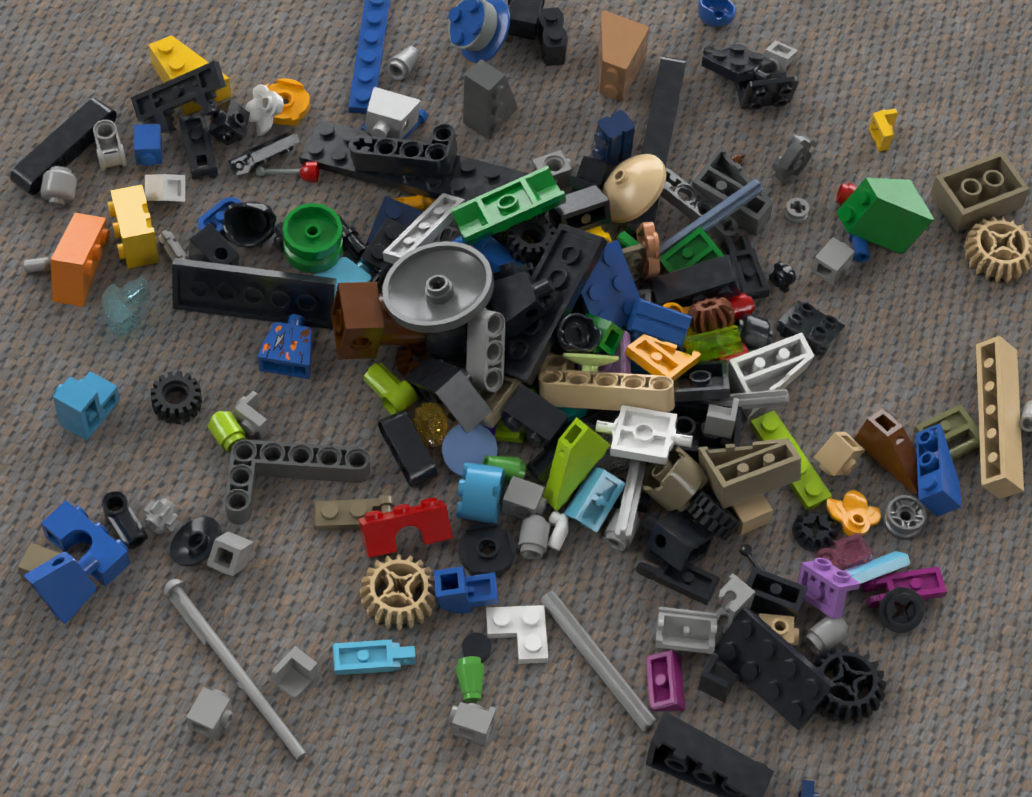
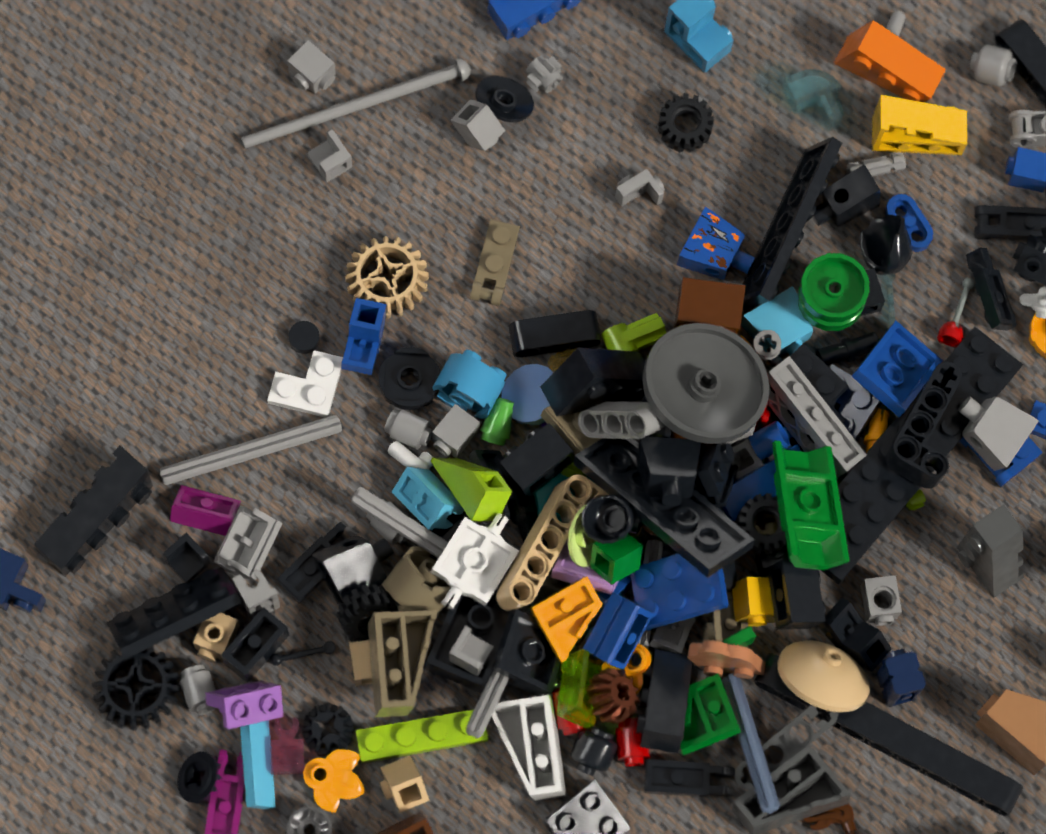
camera: 105 degrees right, 15 degrees up
(123, 521) = (548, 38): black piece -> none
(165, 187) = (965, 174): white panel -> none
(226, 429) = (628, 160): lime brick -> none
(287, 467) = (570, 208): dark grey beam -> none
(361, 191) = (897, 368): none -> blue plate
(371, 657) = (324, 231): medium azure hinge -> none
(372, 273) = (775, 339): none -> light grey bush
(380, 528) = (458, 321): red arch -> none
(470, 677) = (270, 318): bright green cone -> none
(472, 722) = (220, 304): light grey brick -> none
(782, 276) = (661, 815): black plate -> none

